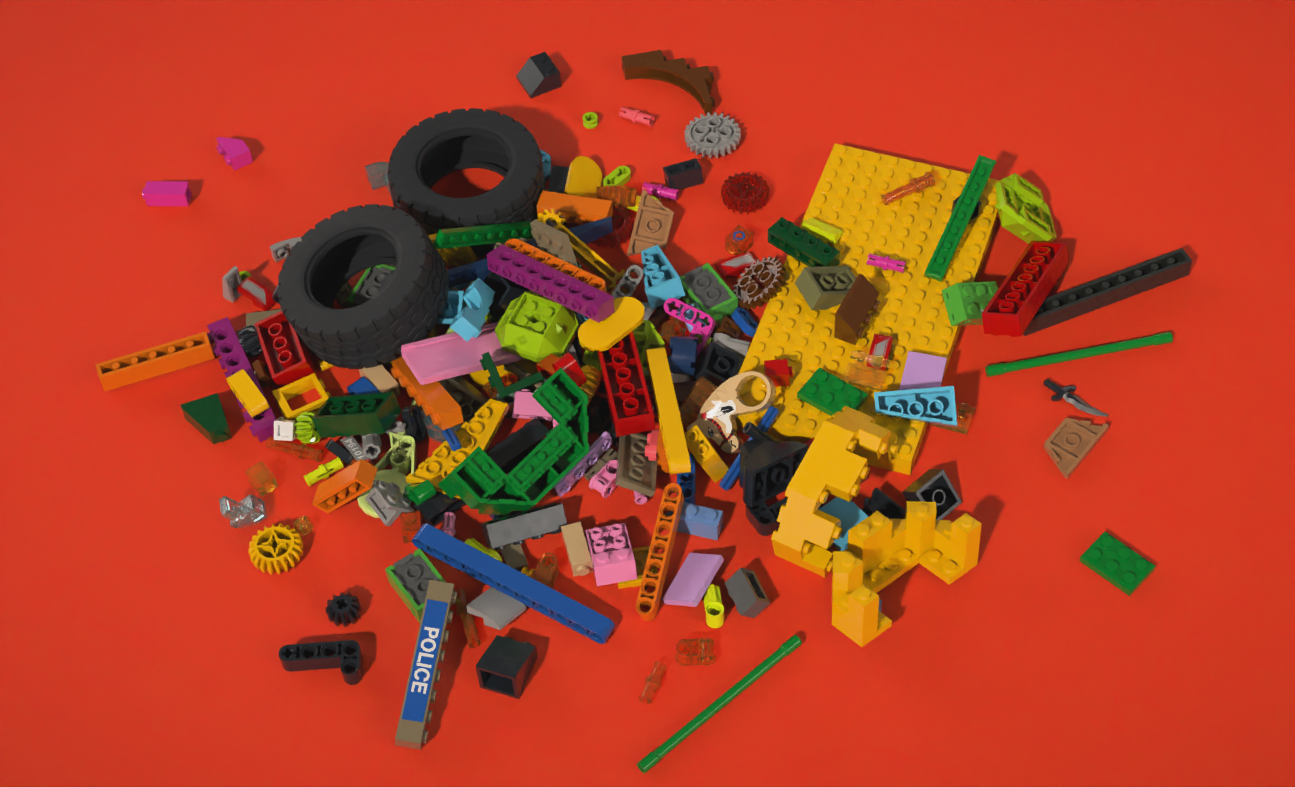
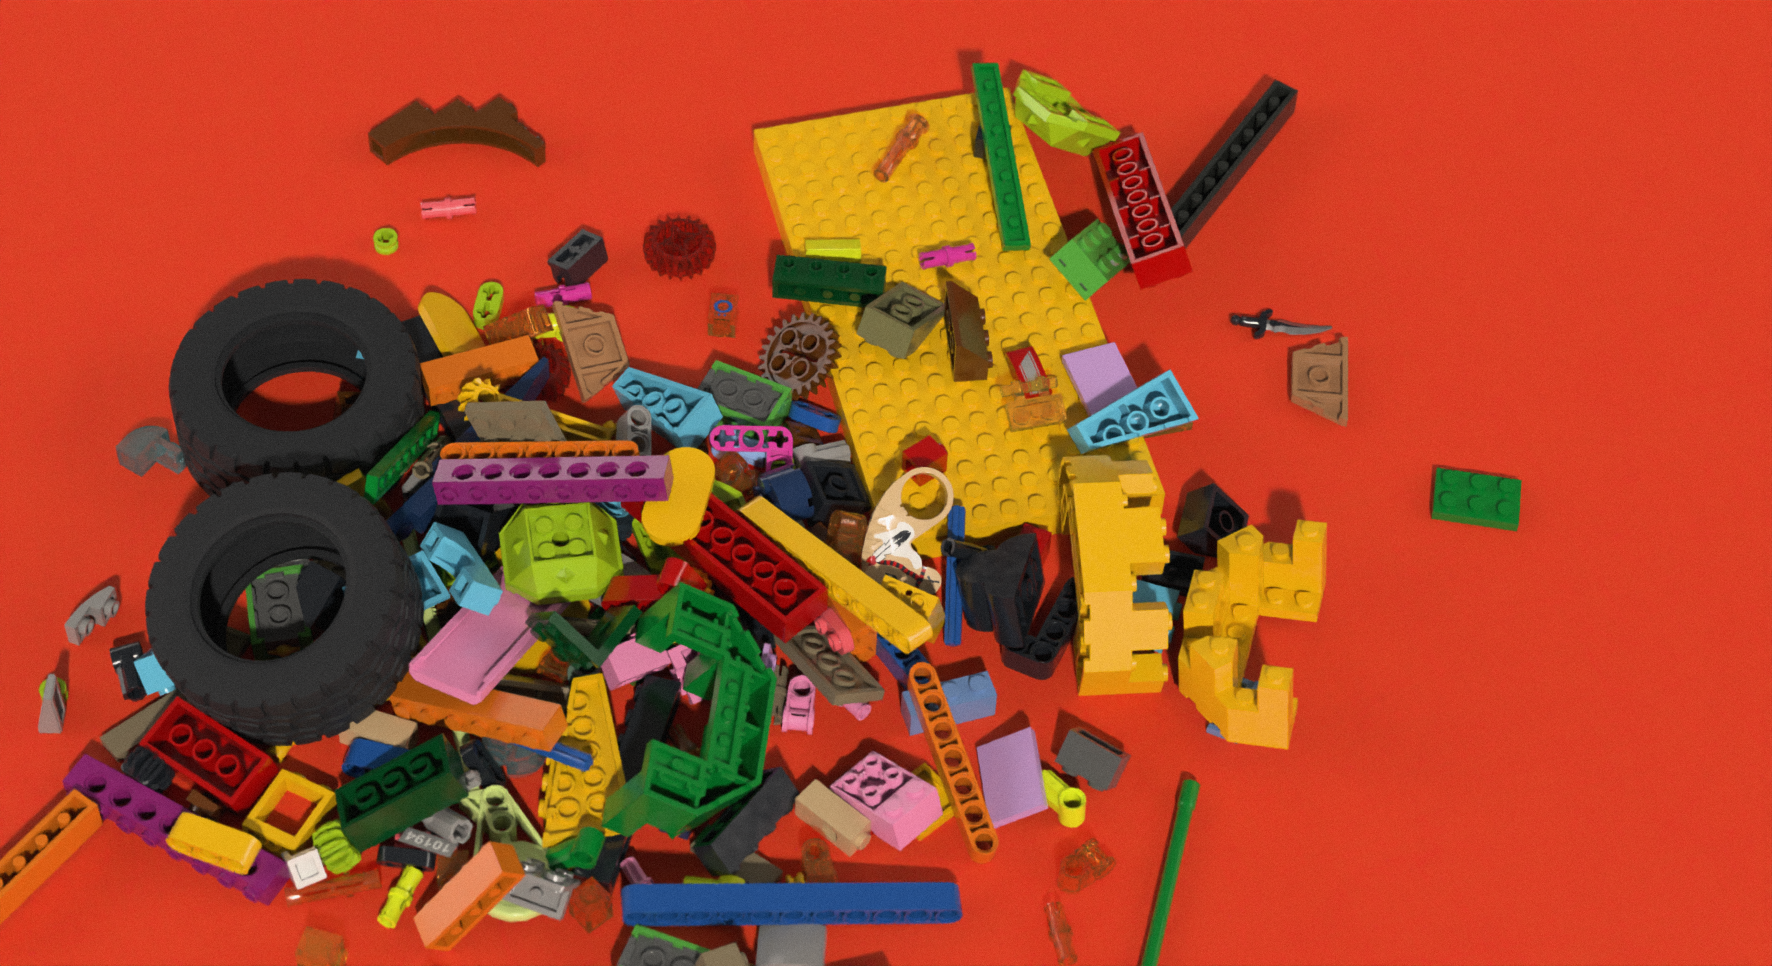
camera: 40 degrees left, 0 degrees up
(208, 418) = (169, 910): dark green slope -> none
(257, 293) = (95, 700): slope -> none
(539, 75) = (264, 209): black slope -> none
(712, 135) = (559, 182): light grey gear -> none
(734, 265) = (743, 347): slope -> none
(831, 393) = (1012, 456): green plate -> none
(1002, 368) = (1171, 327): green piece -> none

